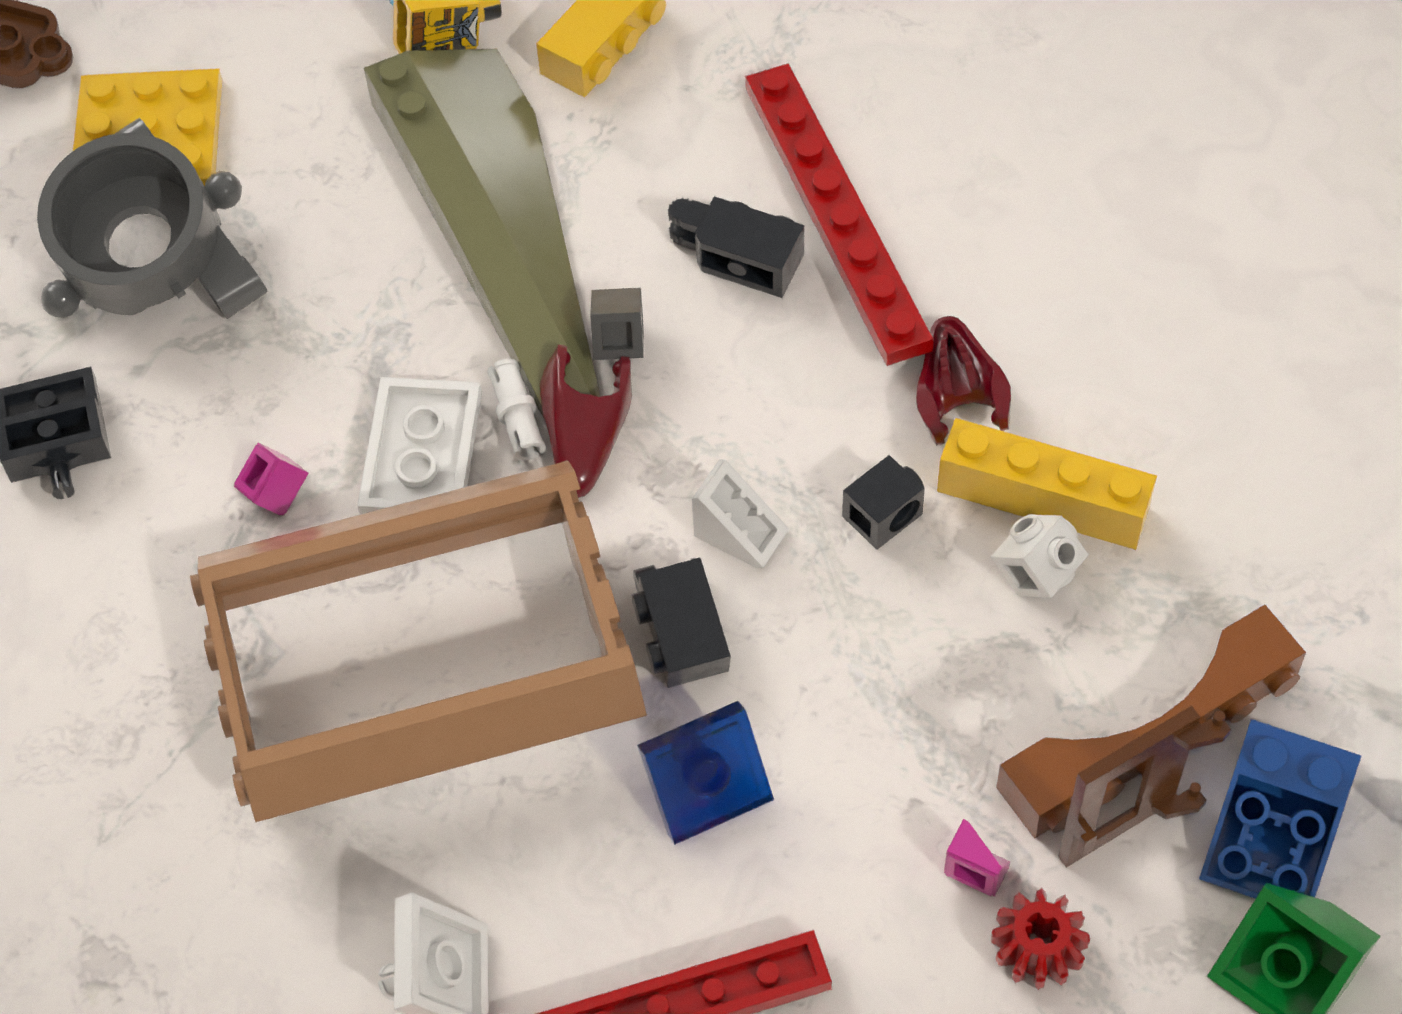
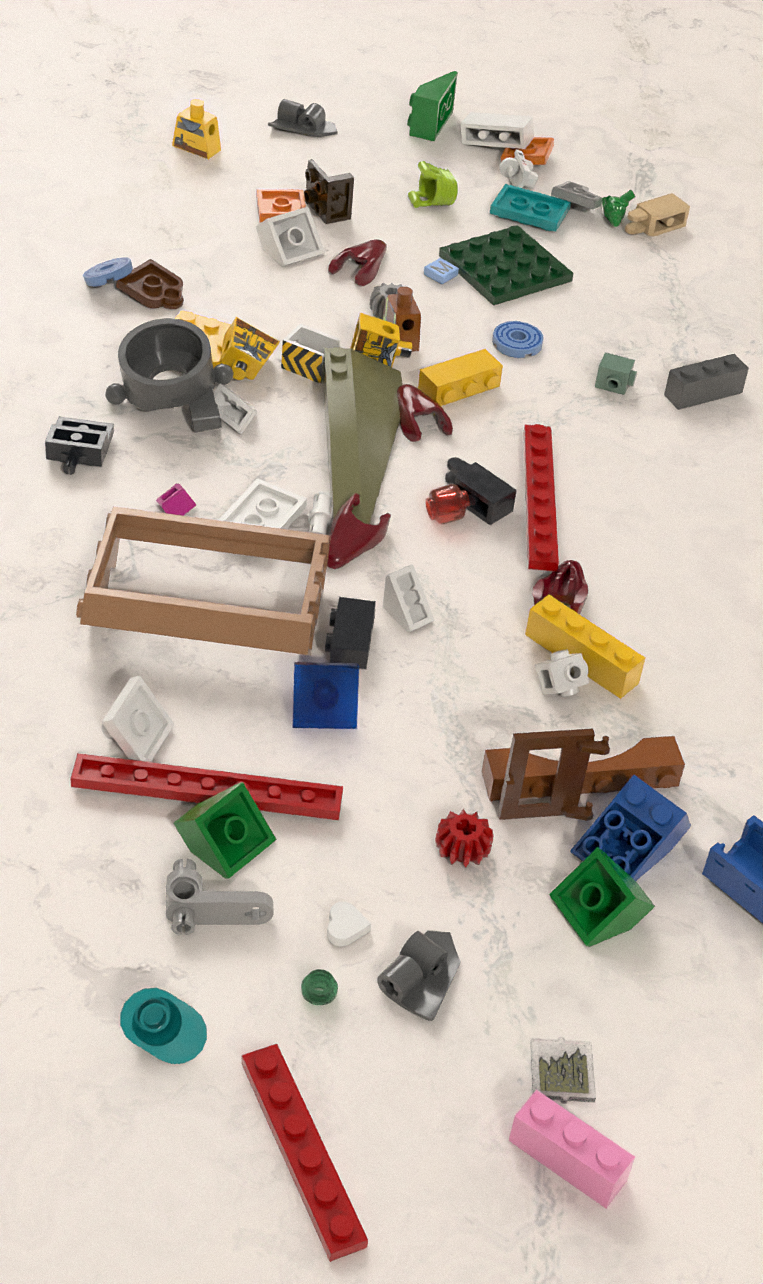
camera: 15 degrees right, 15 degrees down
(234, 120) = (246, 349): none -> yellow torso
(270, 244) = (233, 408): none -> white slope
(331, 80) = (306, 354): none -> piece
(556, 110) = (414, 403): none -> dark red animal
(617, 323) = (393, 498): dark grey brick -> none
(703, 293) = (447, 504): none -> clear red head
(883, 501) = (491, 623): black brick -> none
(973, 863) = (446, 791): dark pink slope -> none

